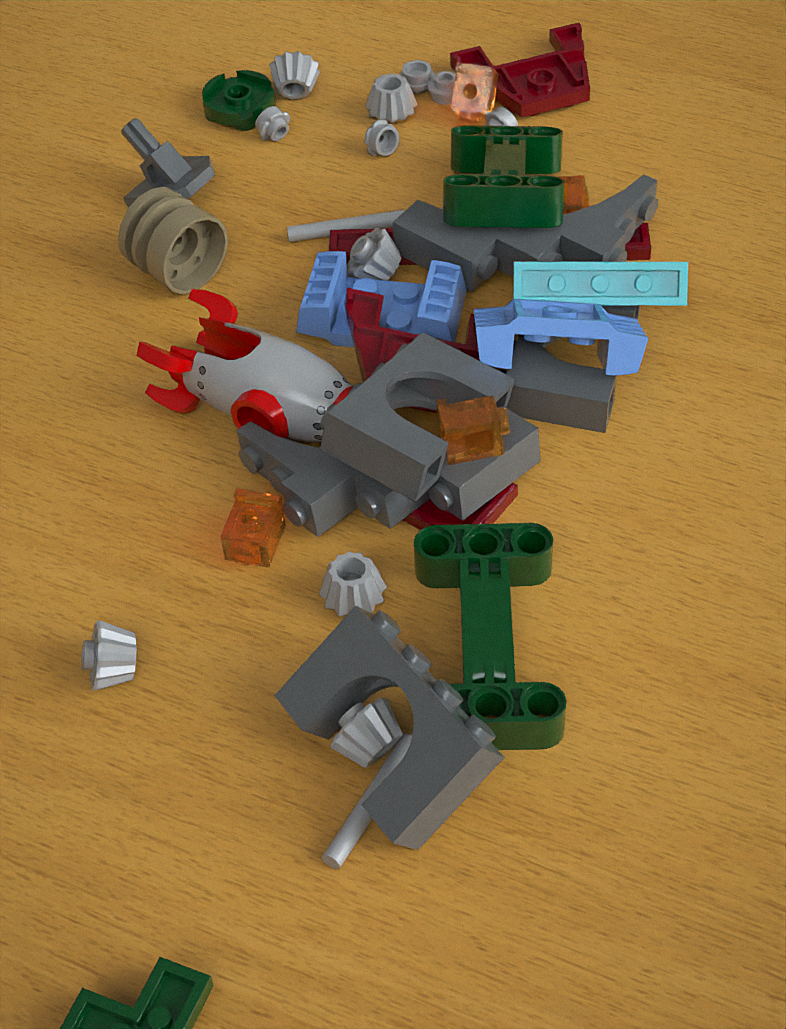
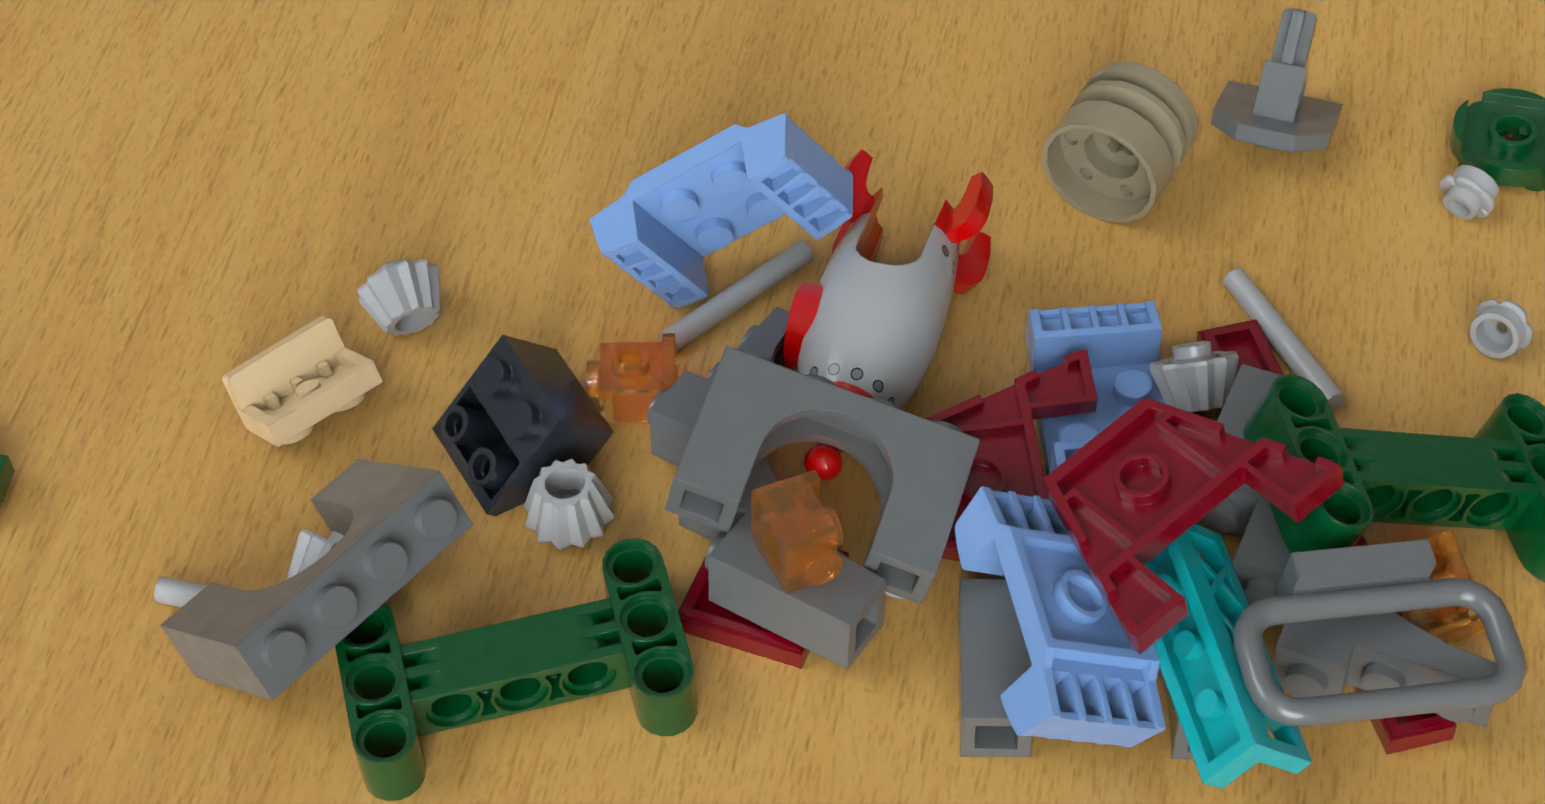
camera: 75 degrees right, 0 degrees up
(167, 360) = (716, 197): none -> medium blue plate
(172, 735) = (299, 383): none -> tan bracket
(190, 471) = (740, 294): none -> light grey bar
(271, 603) = (516, 418): none -> black slope
(506, 262) = (1151, 483): none -> dark red wing
(591, 207) = (1369, 583): none -> dark grey bar

